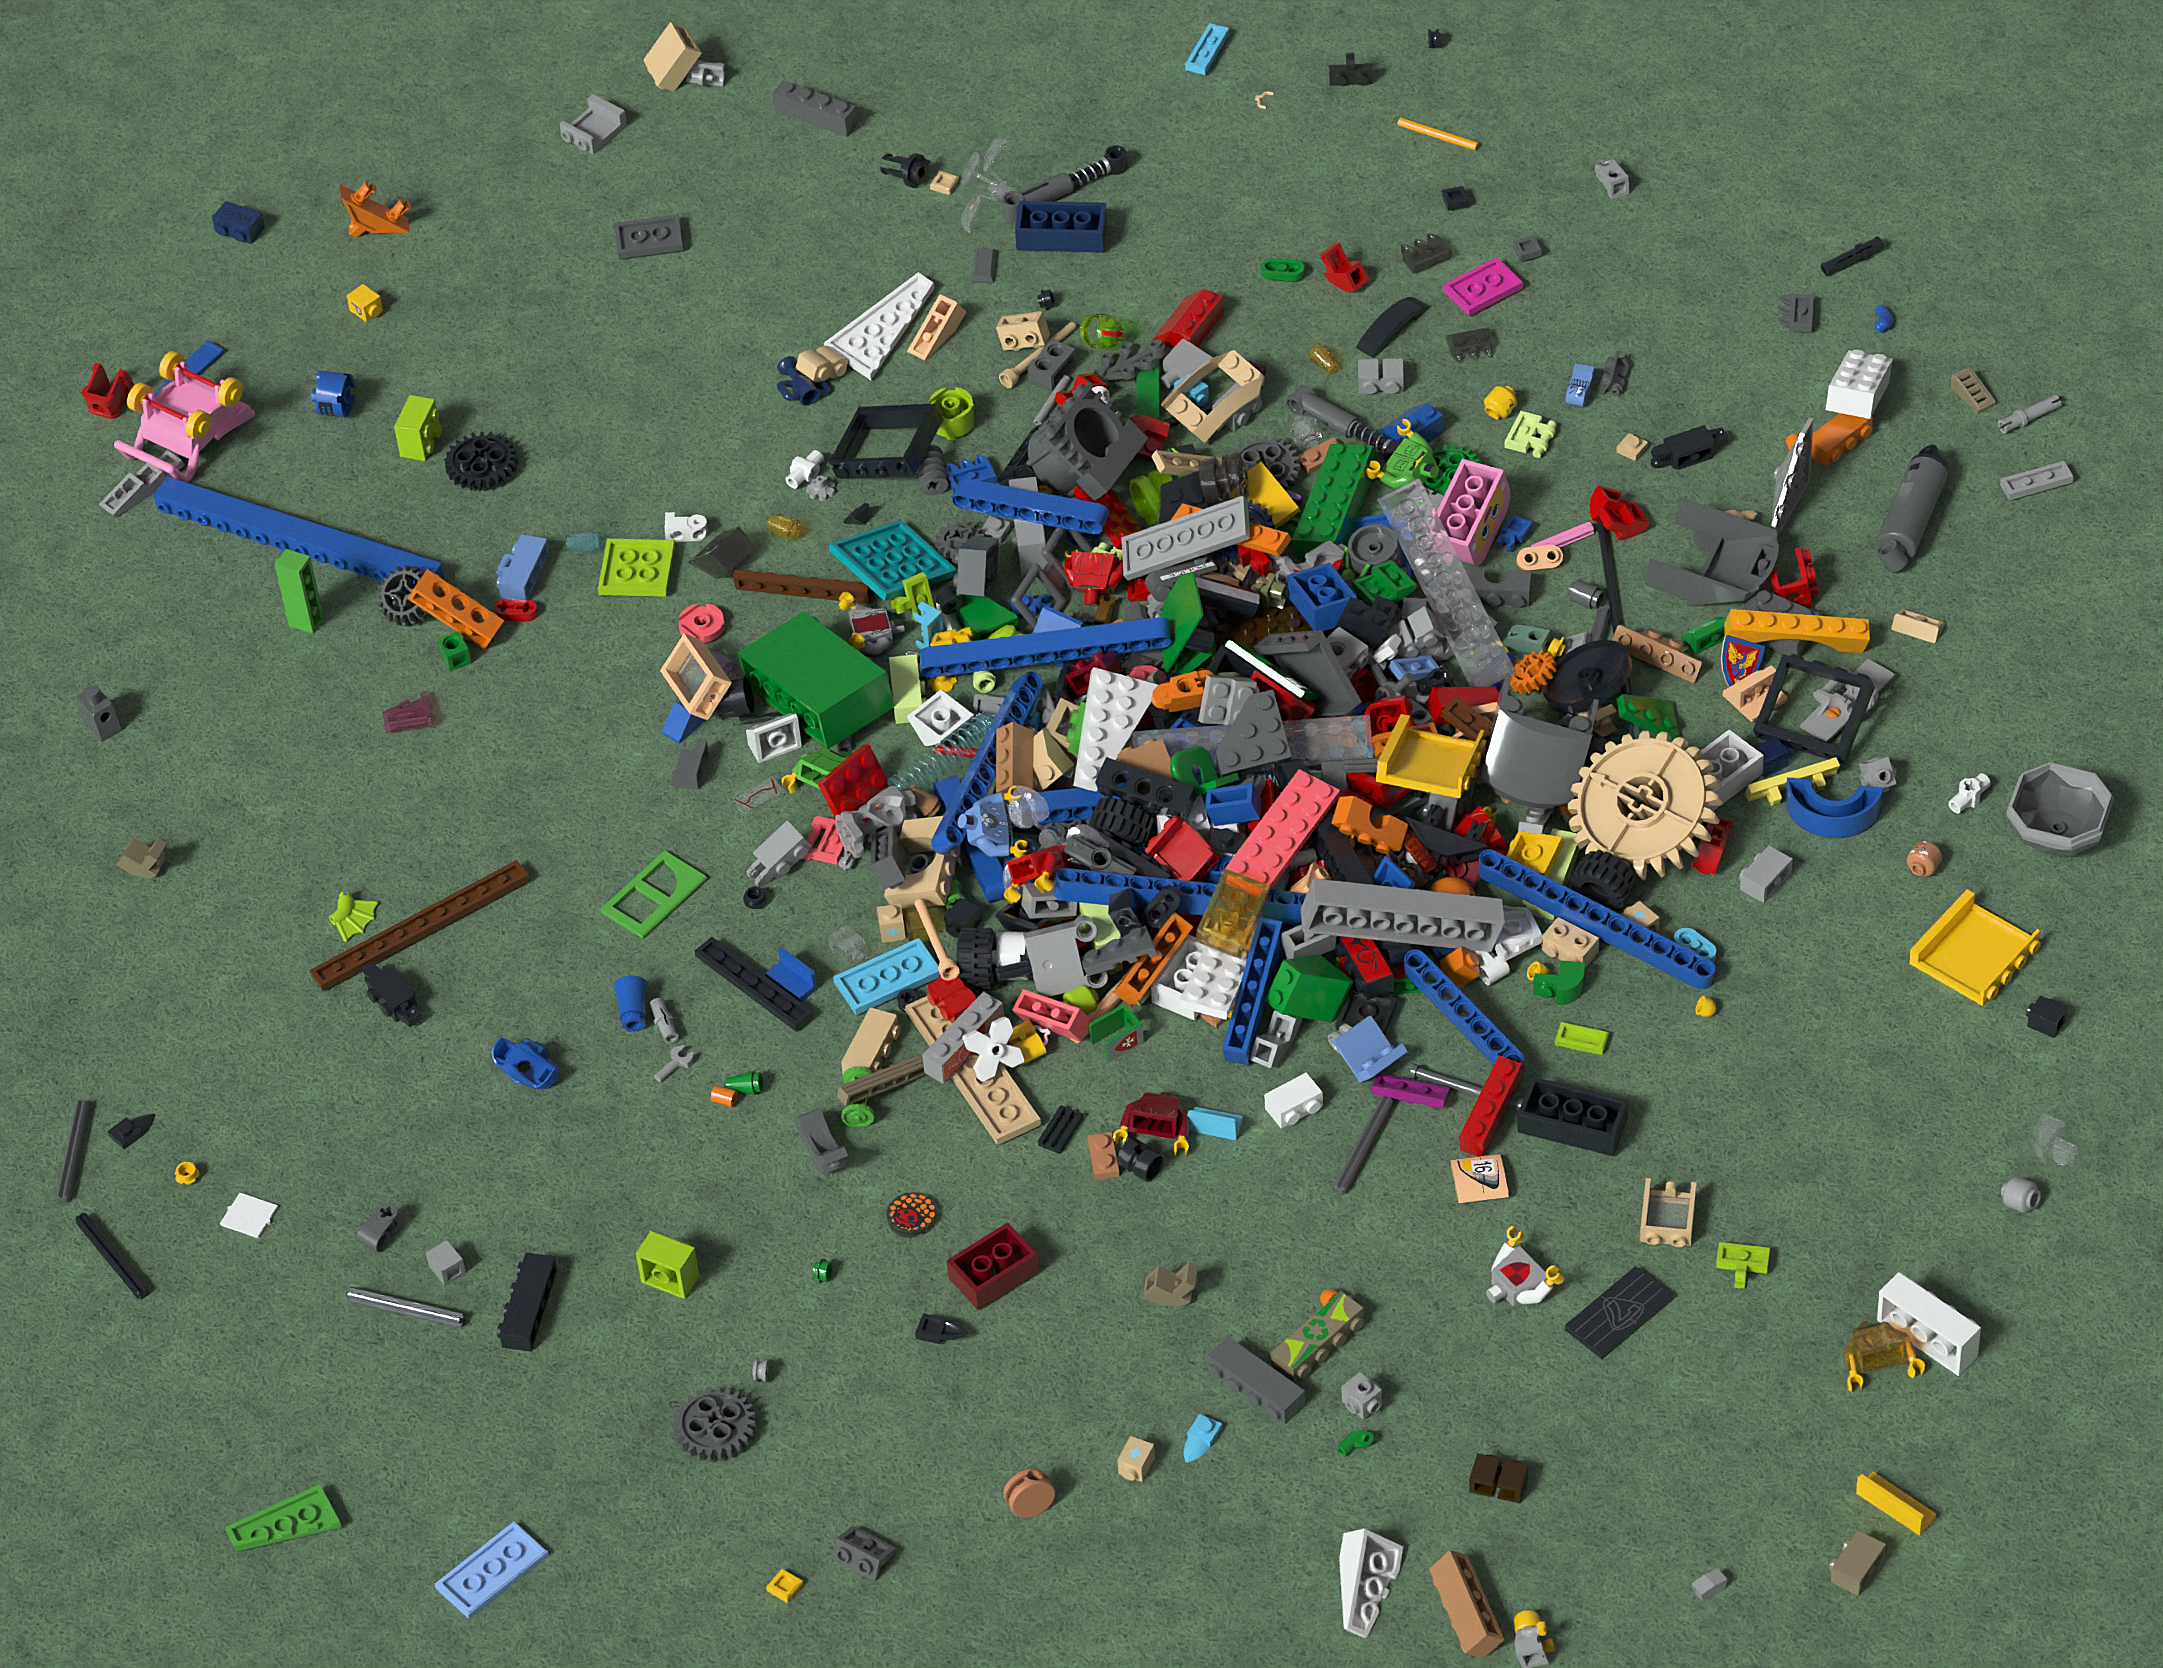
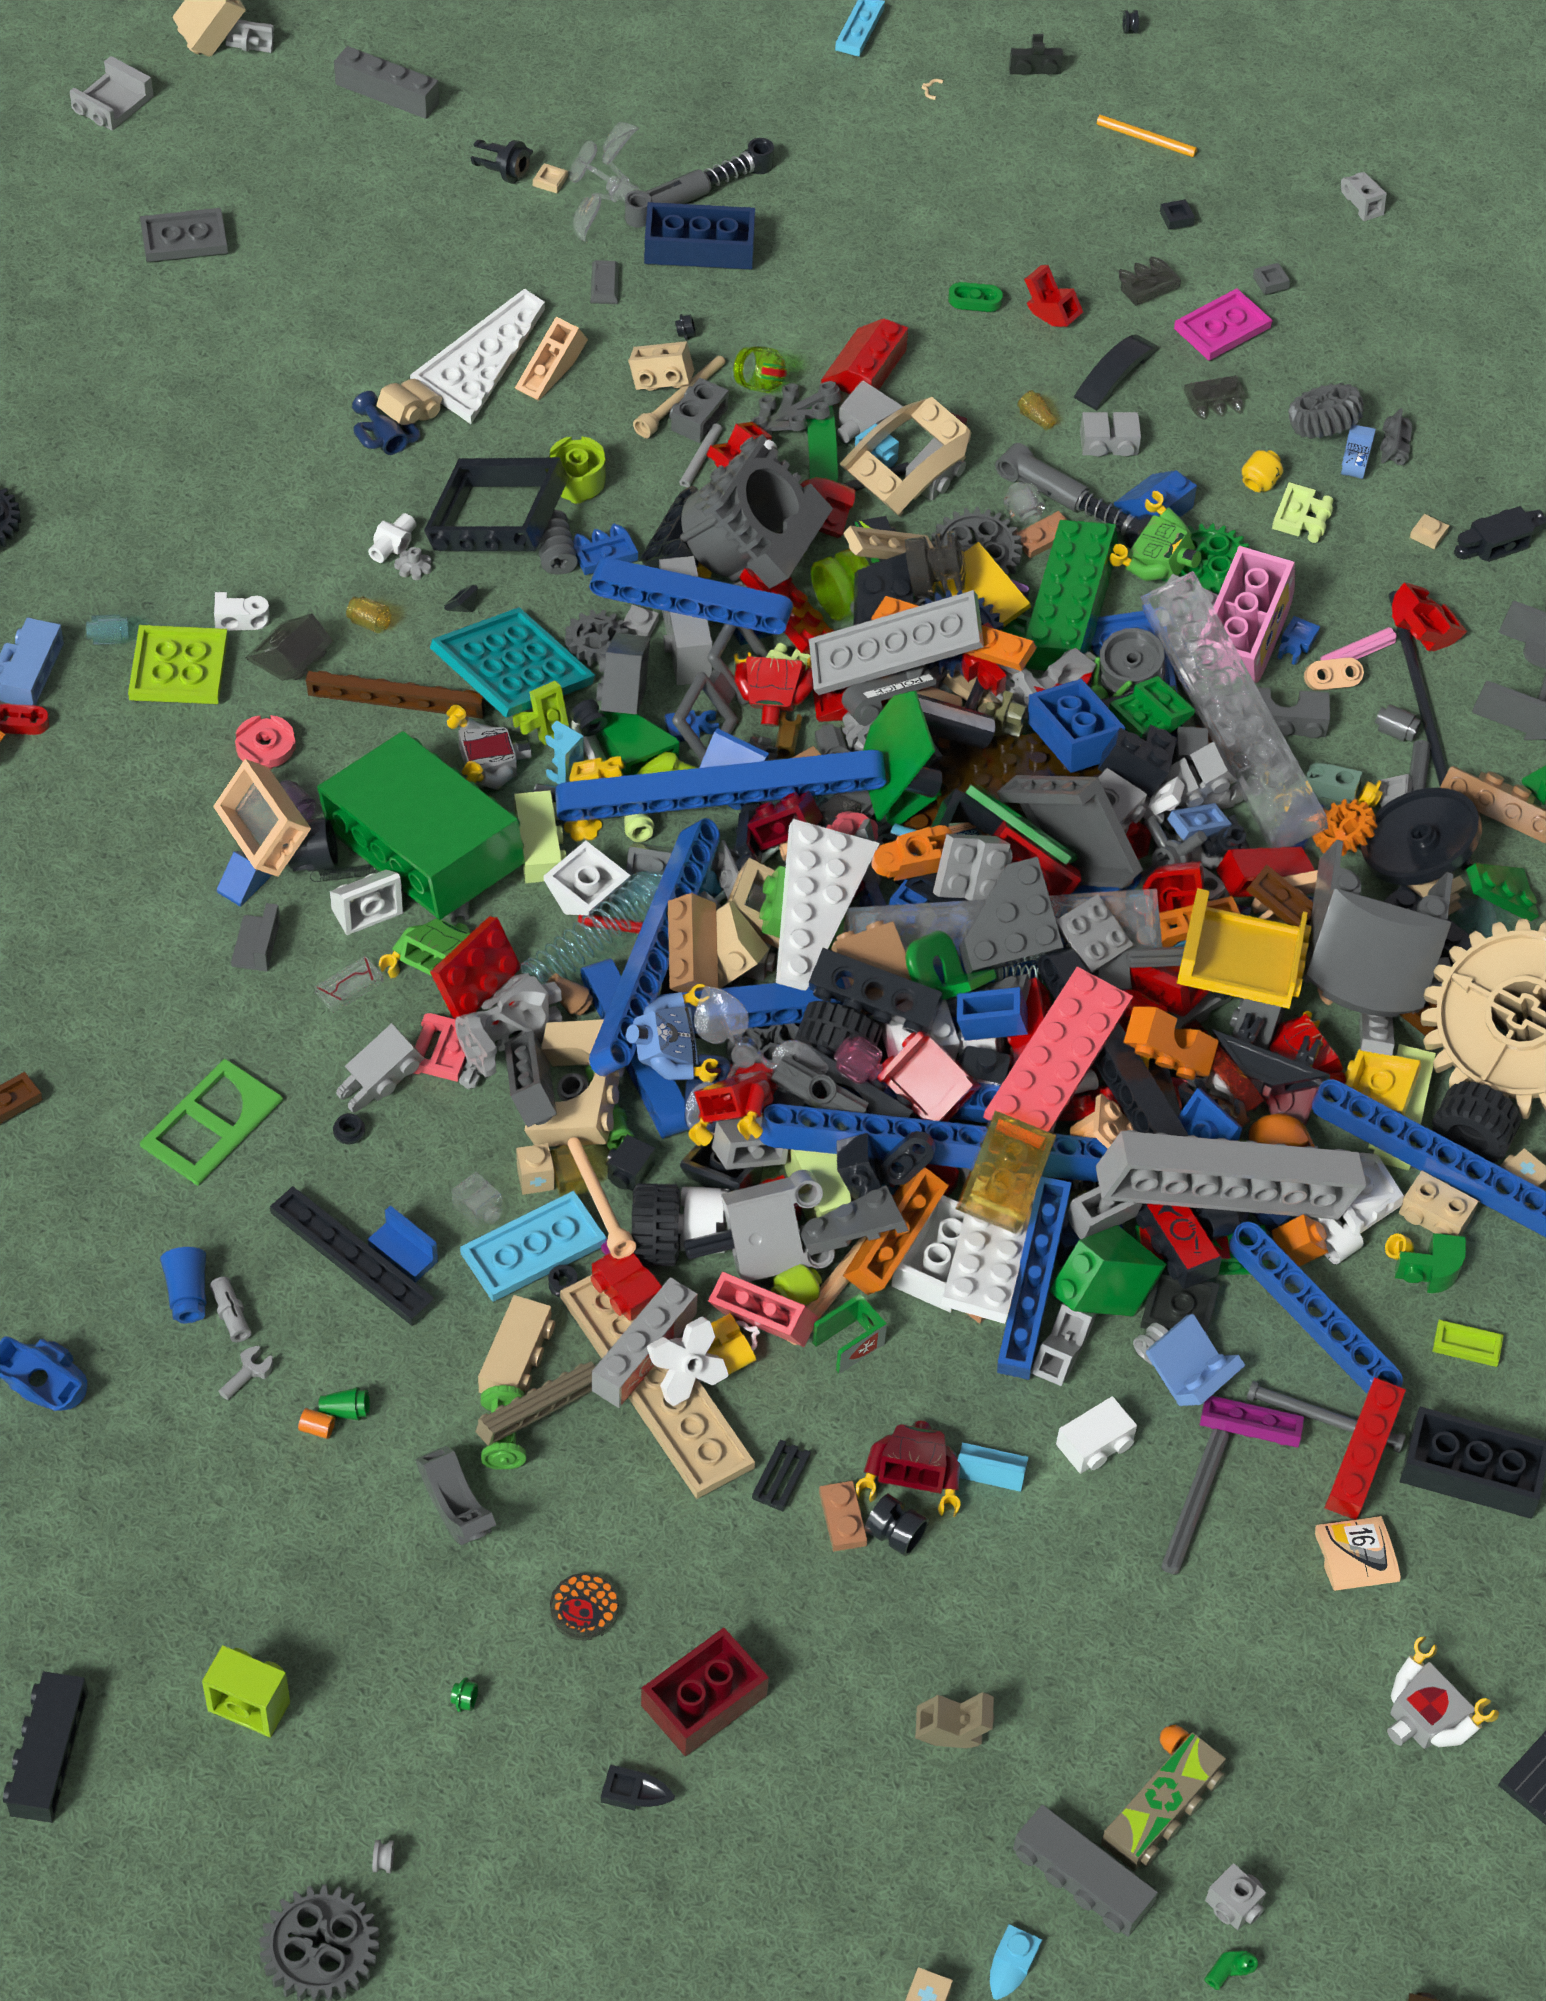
camera: 10 degrees left, 5 degrees up
(1130, 838) = (858, 1059): none -> clear pink head
(1317, 748) = (1093, 933): none -> light grey hinge
(1556, 353) = (1326, 410): none -> dark grey gear

